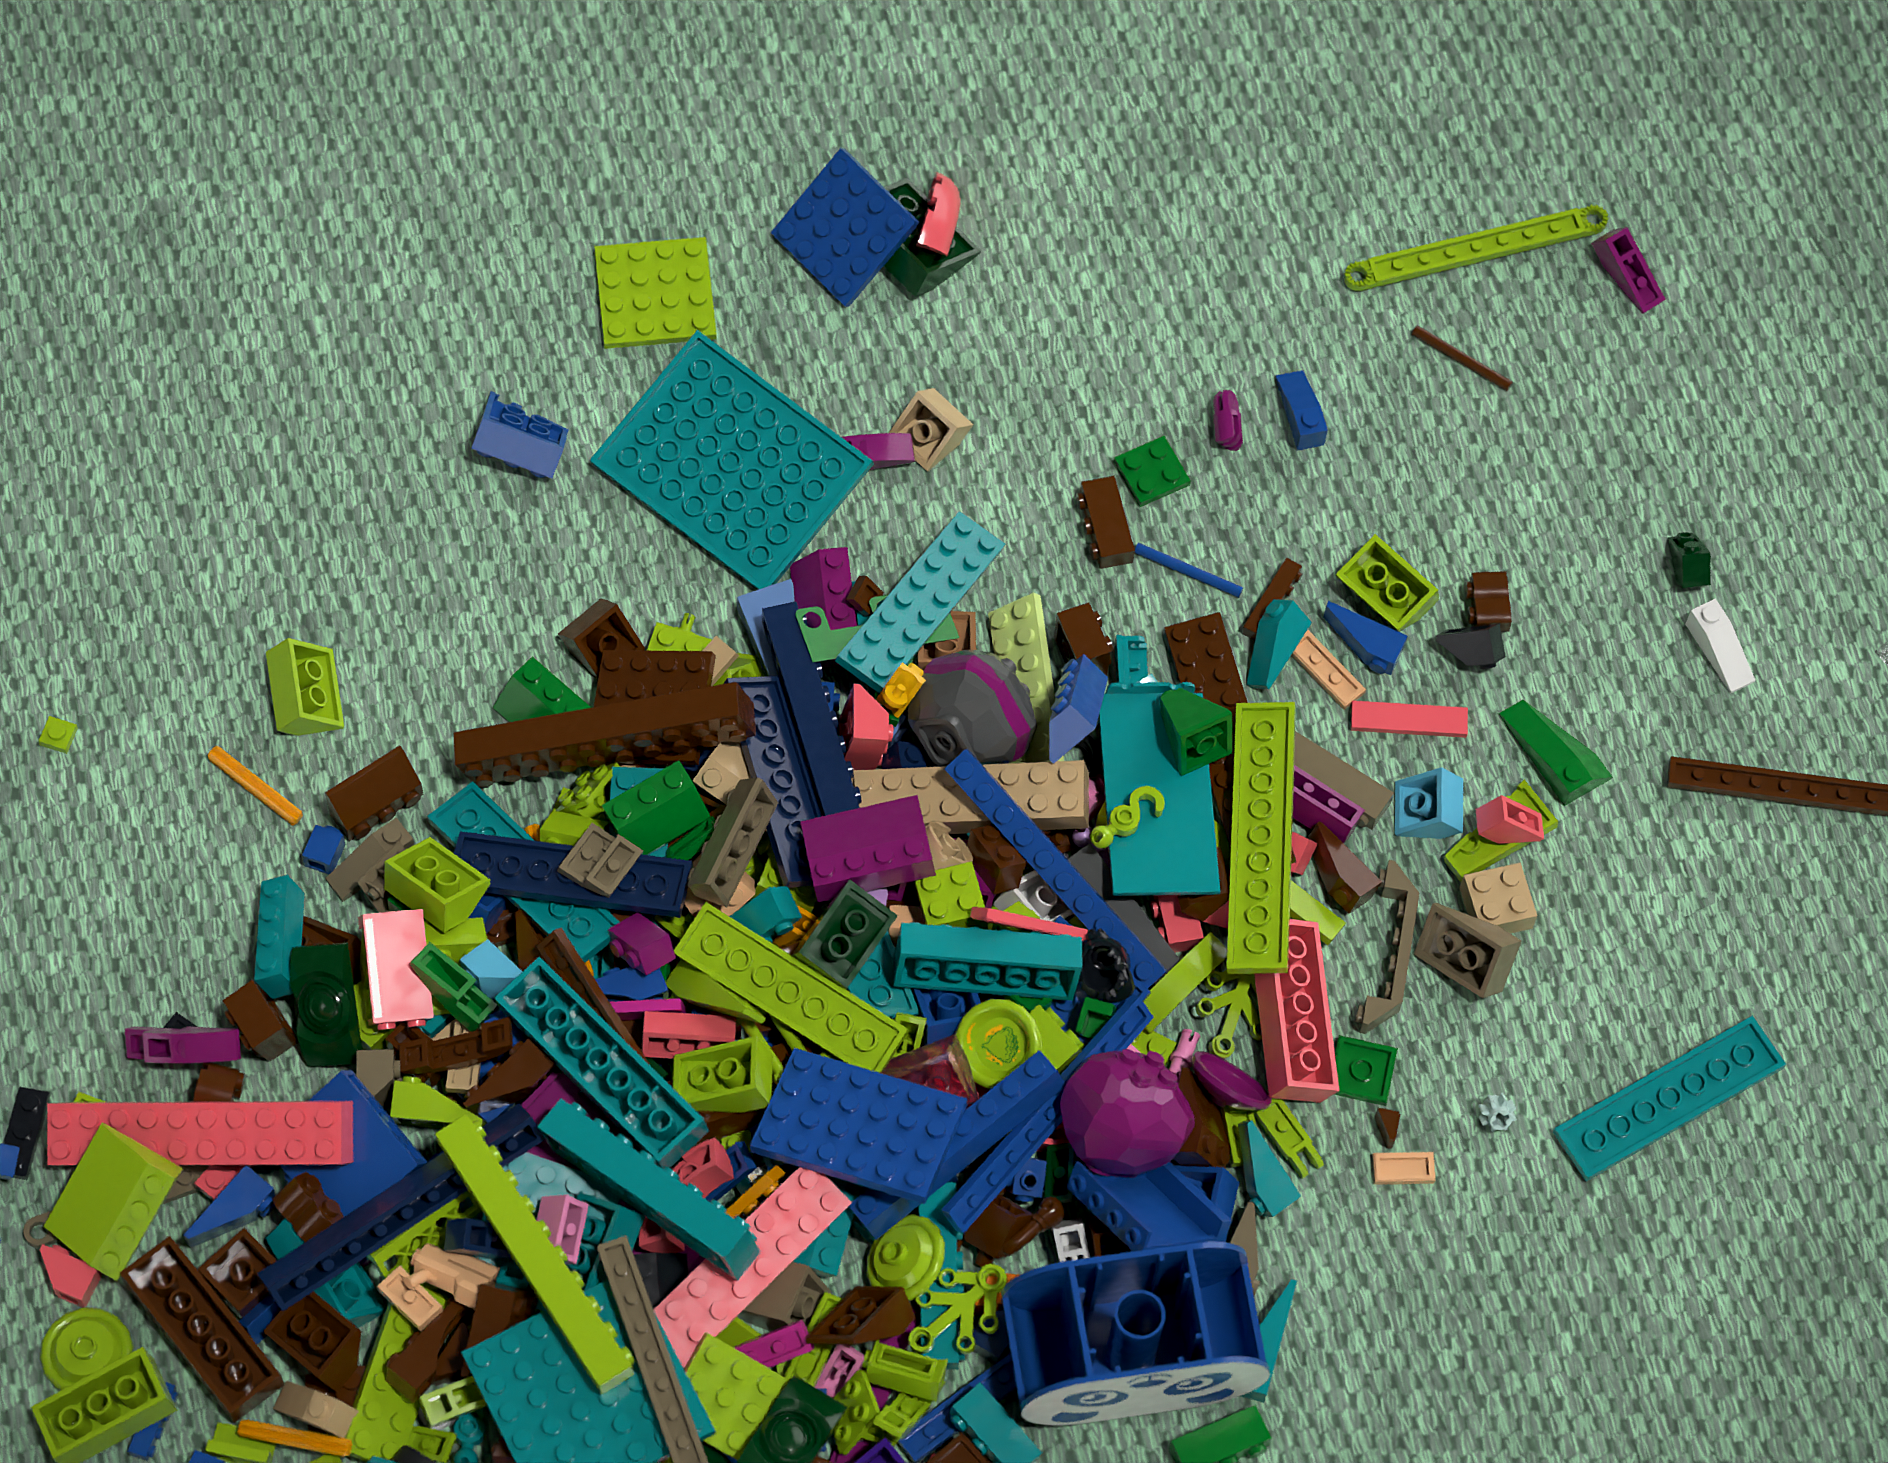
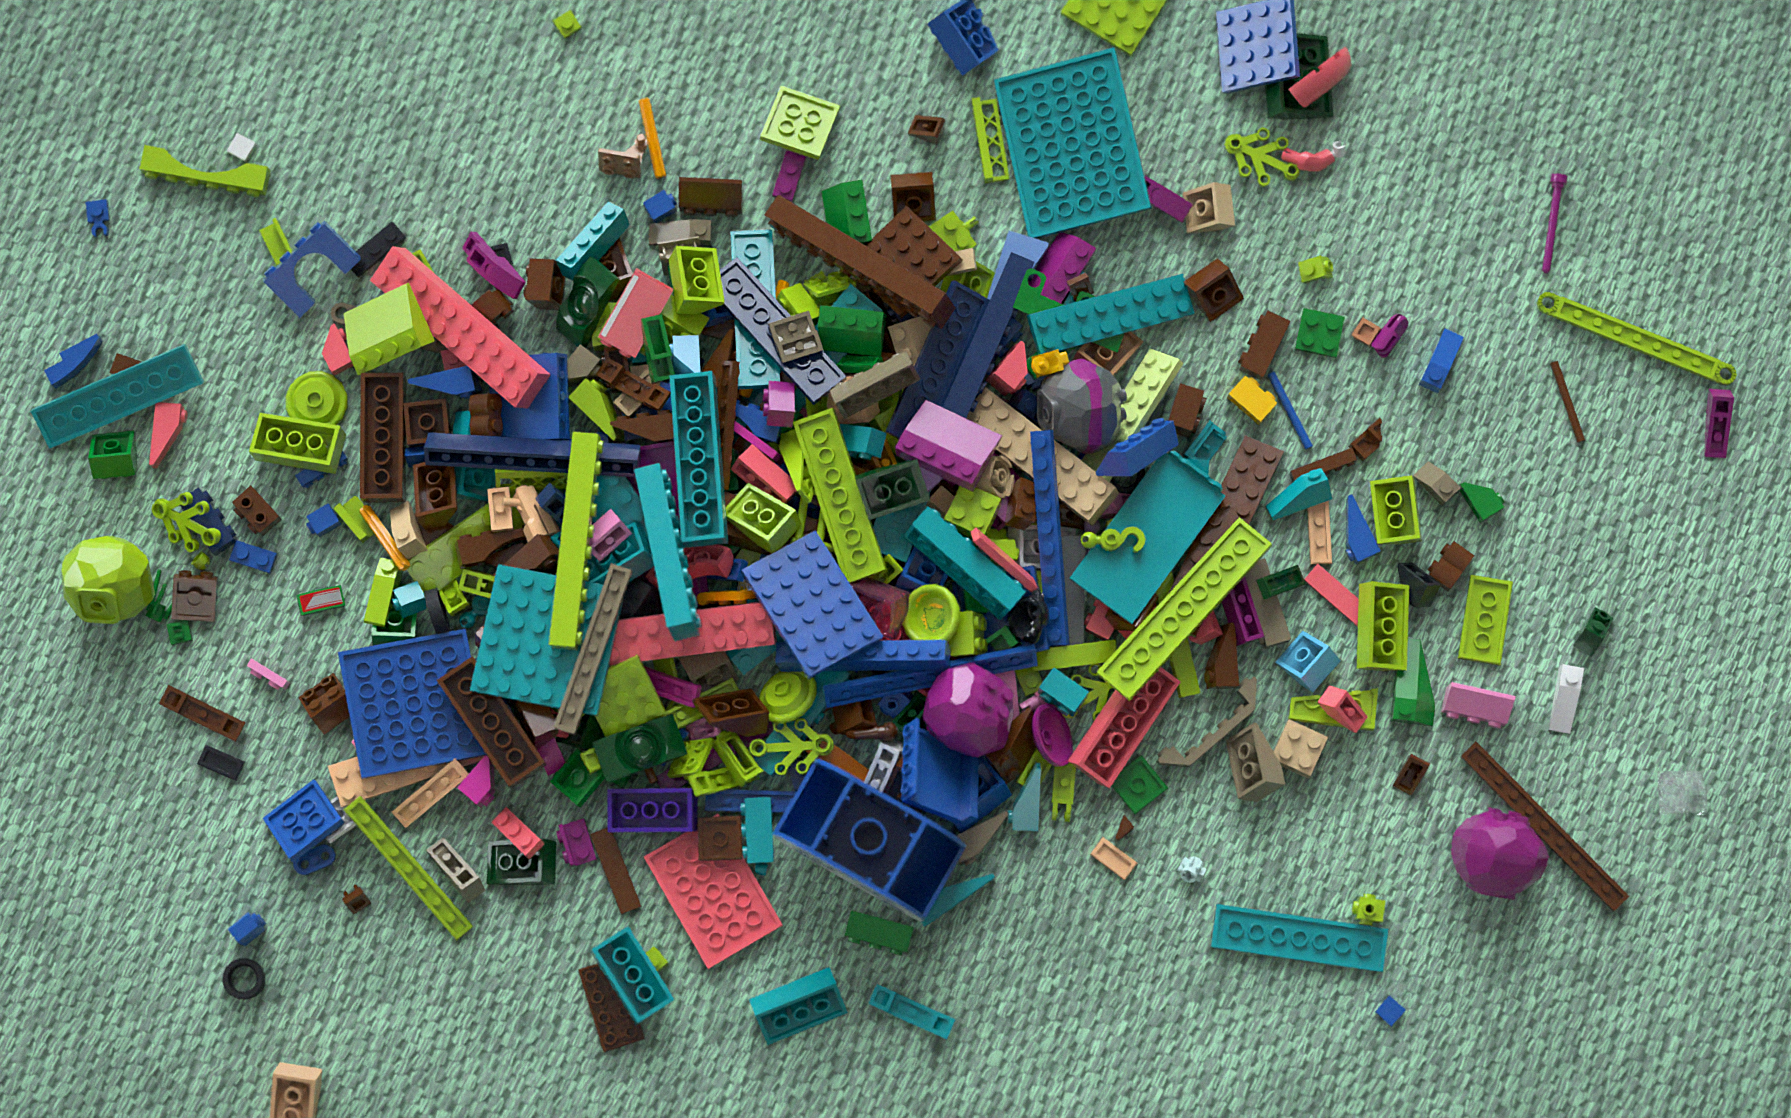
camera: 45 degrees right, 15 degrees up
(242, 830) = (623, 163): none -> medium nougat plate
(304, 688) = (723, 100): lime slope -> none
(412, 650) = (799, 122): none -> plate
(438, 705) = (789, 175): none -> magenta plate
(558, 559) = (927, 128): none -> reddish brown slope
(633, 531) = (982, 140): none -> lime fence
(938, 341) = (1259, 155): none -> lime plant
(999, 306) = (1314, 162): none -> coral arm
(1005, 503) = (1214, 289): none -> reddish brown slope
(1093, 410) = (1315, 269): none -> lime bracket
(1141, 585) = (1252, 399): none -> yellow brick
(1195, 729) = (1198, 516): green slope -> none
(1200, 434) = (1366, 332): none -> nougat plate
(1203, 1027) = (1062, 692): none -> teal brick
(1266, 153) = (1558, 182): none -> magenta piece
(1296, 540) = (1368, 441): none -> reddish brown slope
(1334, 741) = (1280, 582): none -> dark green plate
(1405, 529) = (1437, 482): none -> dark tan slope
(1462, 514) = (1482, 500): none -> green slope
(1476, 710) = (1382, 626): none -> lime slope
(1571, 631) = (1485, 620): none -> lime tile
(1635, 838) = (1411, 774): none -> reddish brown slope
(1640, 716) = (1477, 705): none -> bright pink slope
(1716, 1010) = (1376, 906): none -> lime brick
(1797, 844) = (1498, 853): none -> magenta rock
(1827, 1101) = (1390, 1010): none -> blue tile

